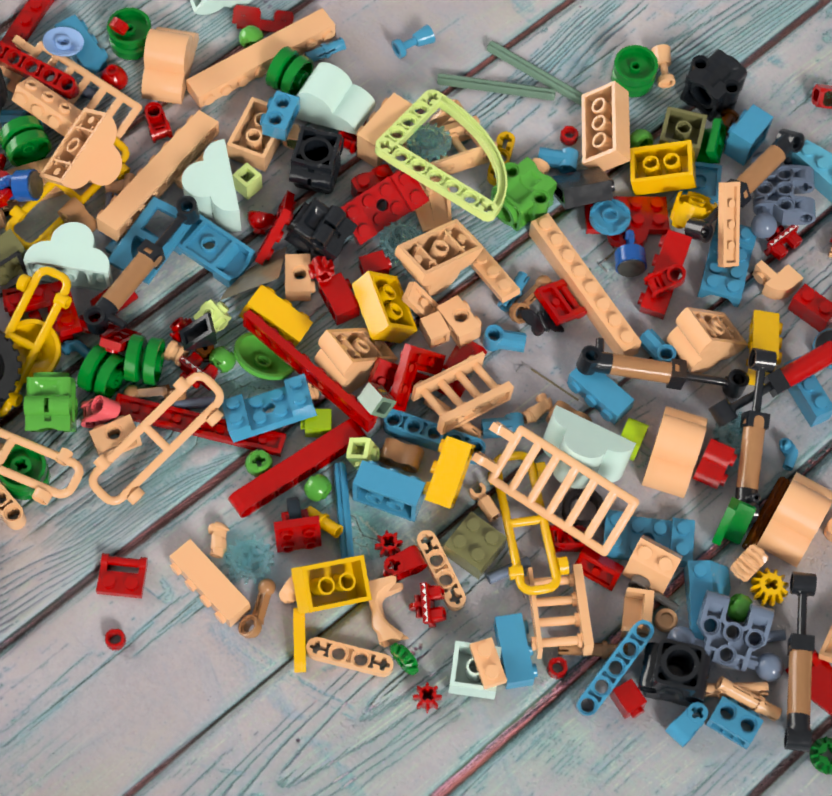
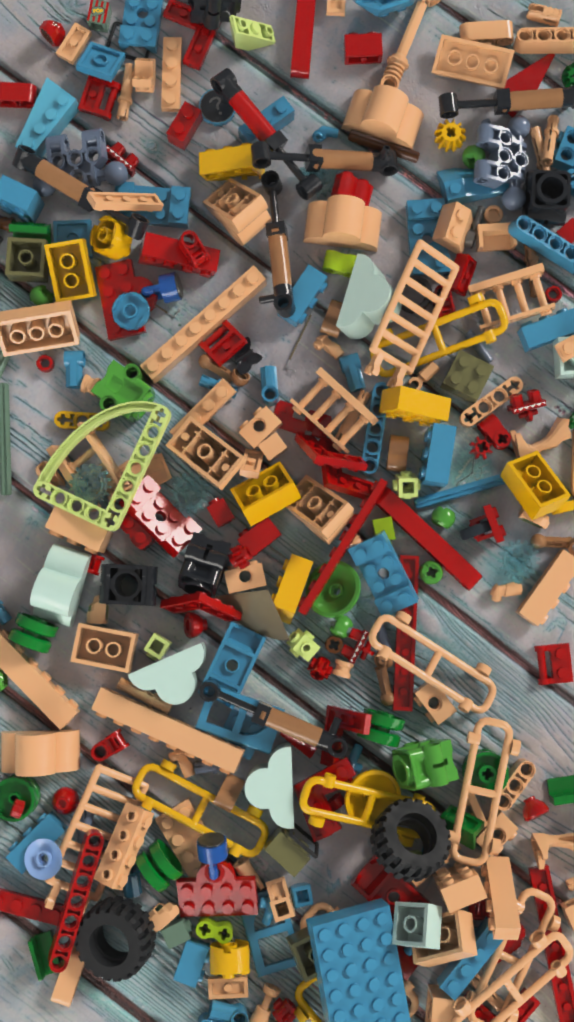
camera: 100 degrees left, 20 degrees up
(86, 153) = (174, 802): light nougat brick -> none
(99, 411) = (415, 721): coral piece -> none
(144, 359) = (361, 697): green wheel -> none
(199, 333) = (330, 650): black slope -> none
(283, 116) = (91, 623): dark azure brick -> none
(326, 523) = (472, 506): yellow axle -> none
(376, 400) = (364, 479): brick -> none
(583, 187) = (105, 339): black brick -> none
(656, 346) = (249, 254): dark azure piece -> none
(734, 522) = (403, 169): green panel -> none
(749, 562) = (435, 152): light nougat gear -> none
(779, 284) = (165, 156): light nougat brick -> none

